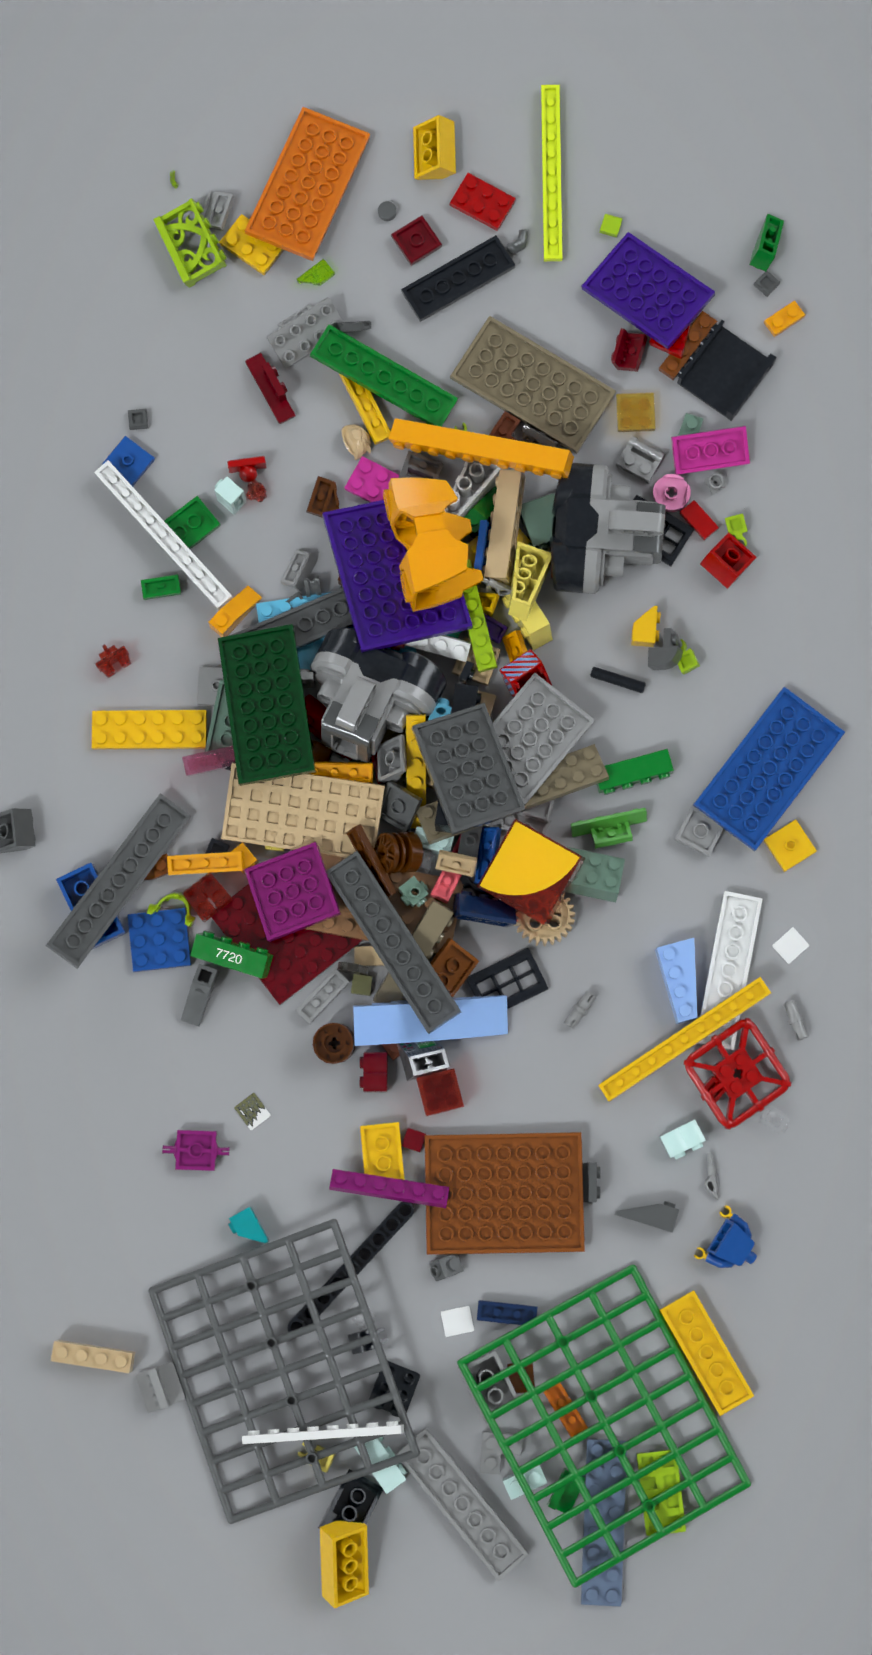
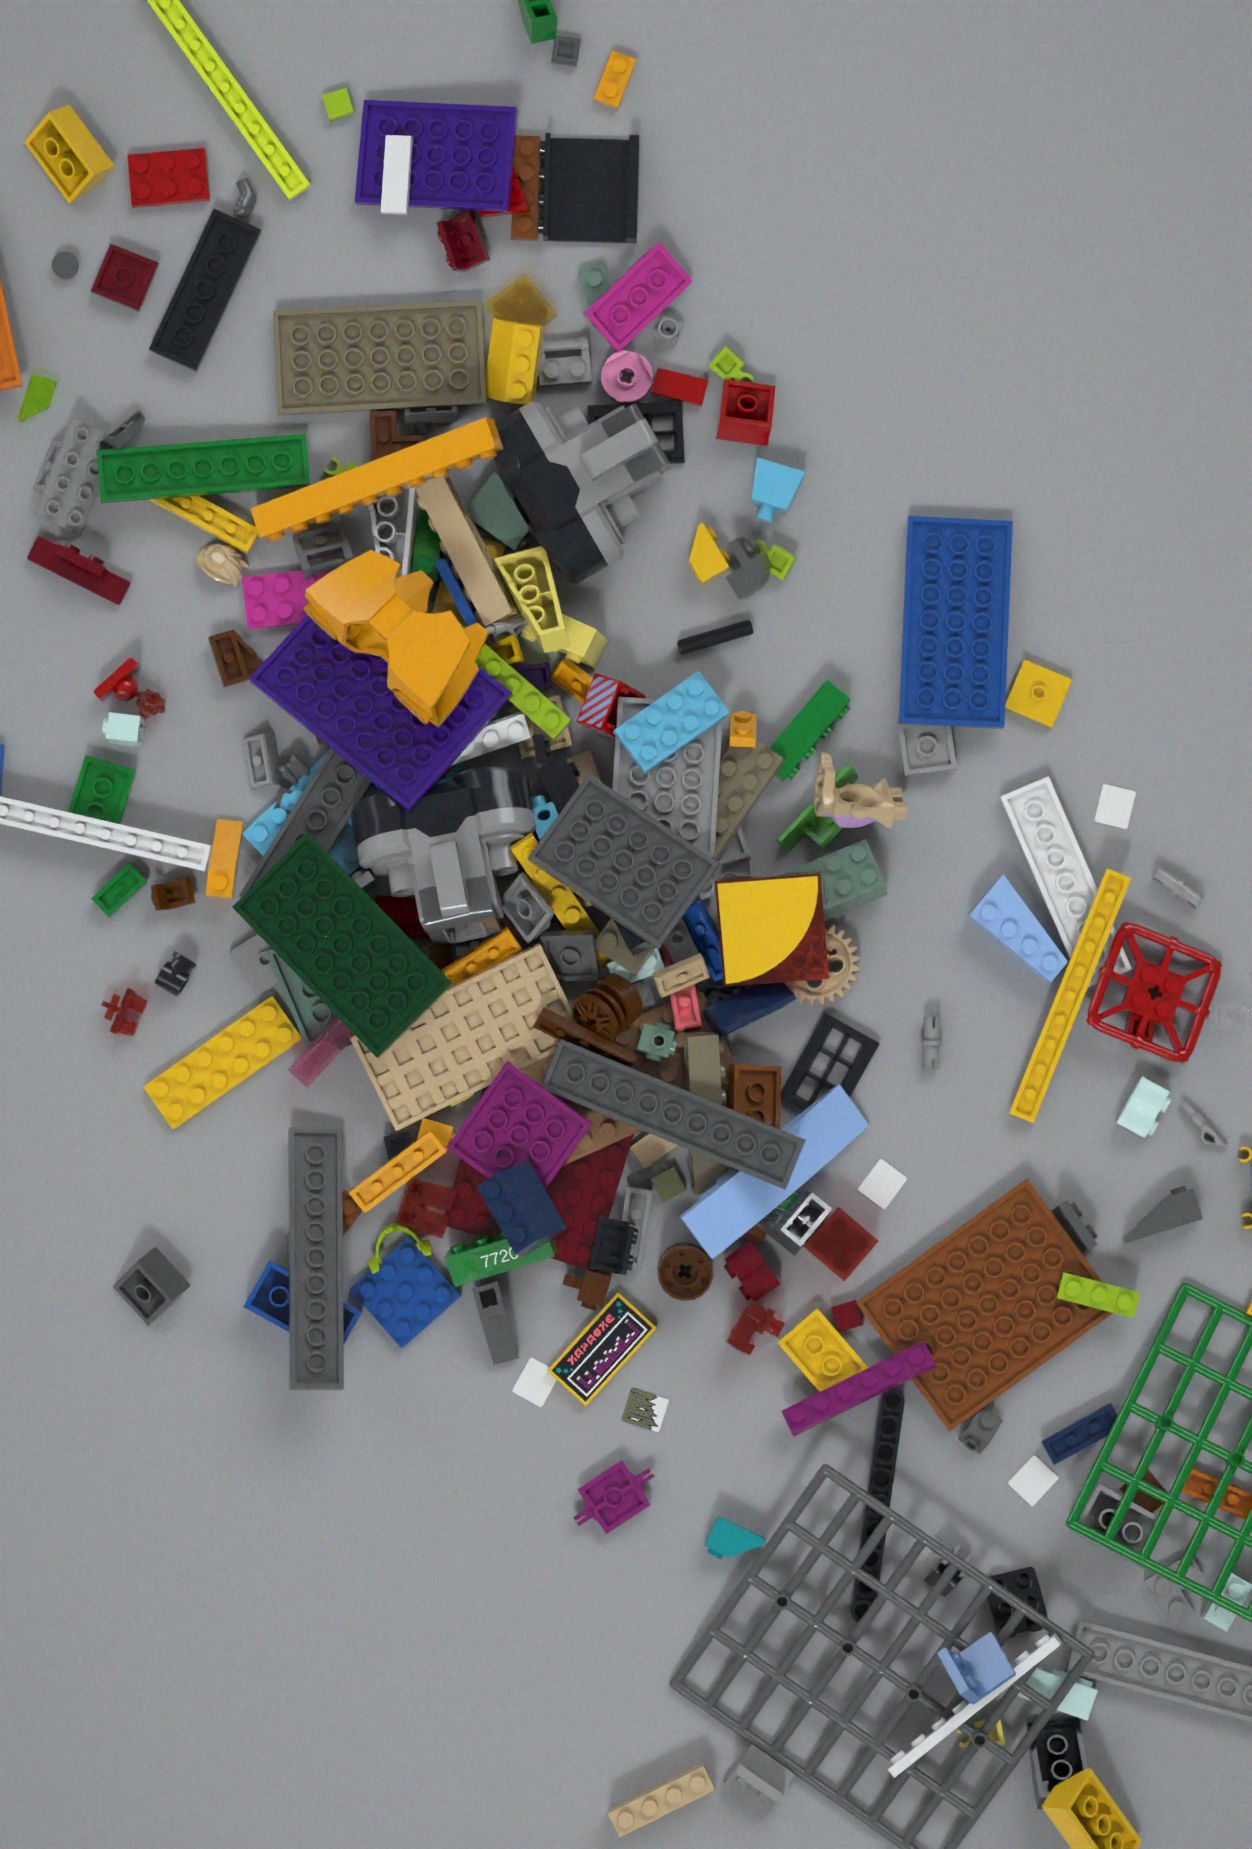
camera: 35 degrees left, 5 degrees up
(157, 658) = (175, 974): none -> black piece
(189, 610) = (172, 894): none -> reddish brown bracket
(199, 1048) = (535, 1382): none -> white sticker
(252, 1056) = (601, 1349): none -> tile
(261, 935) = (522, 1208): none -> dark blue slope
(271, 1015) = (592, 1288): none -> reddish brown brick
(300, 996) = (613, 1246): none -> black bracket
(340, 1412) = (978, 1668): none -> medium blue bracket
(351, 1101) = (753, 1319): none -> clear red hips
(491, 1075) = (882, 1184): none -> white sticker
(556, 708) = (671, 722): none -> medium azure plate
(575, 1234) = (1098, 1295): none -> lime plate
(596, 743) = (742, 729): none -> light orange plate
(611, 437) = (514, 361): none -> yellow slope
(616, 285) = (396, 174): none -> white tile
(635, 834) = (855, 803): none -> tan hips
(714, 616) = (774, 488): none -> medium azure torso

